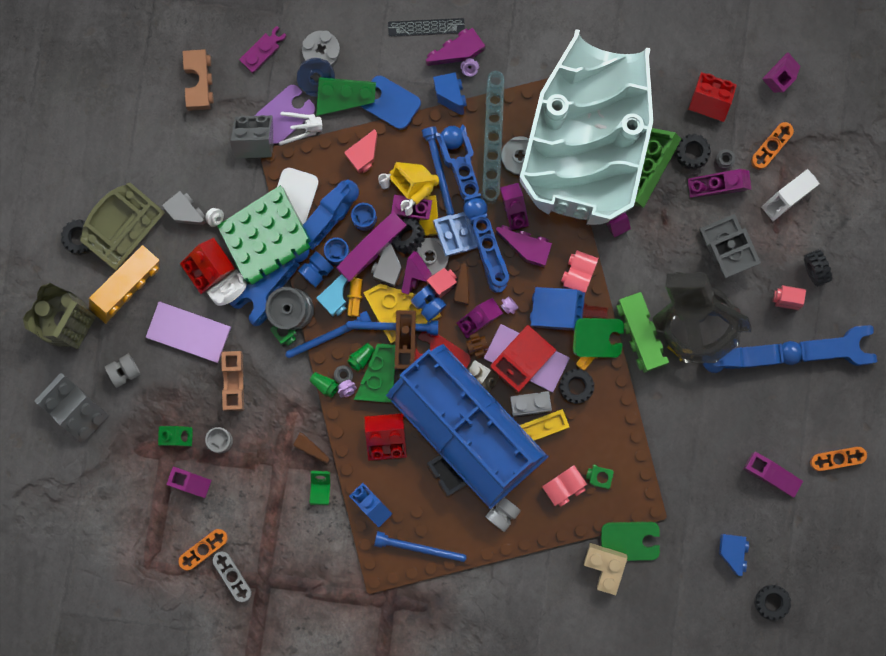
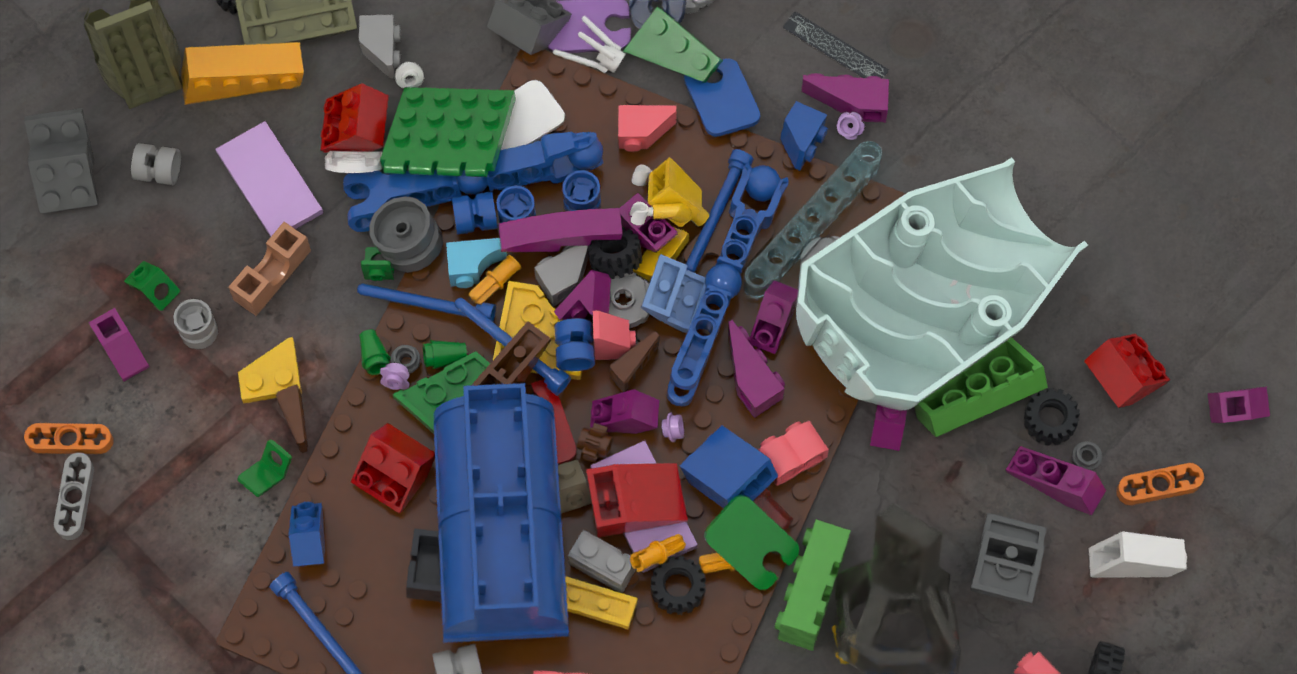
camera: 35 degrees right, 15 degrees down
(278, 435) = (270, 373): none -> yellow wing
(556, 379) = (657, 552): none -> light orange axle

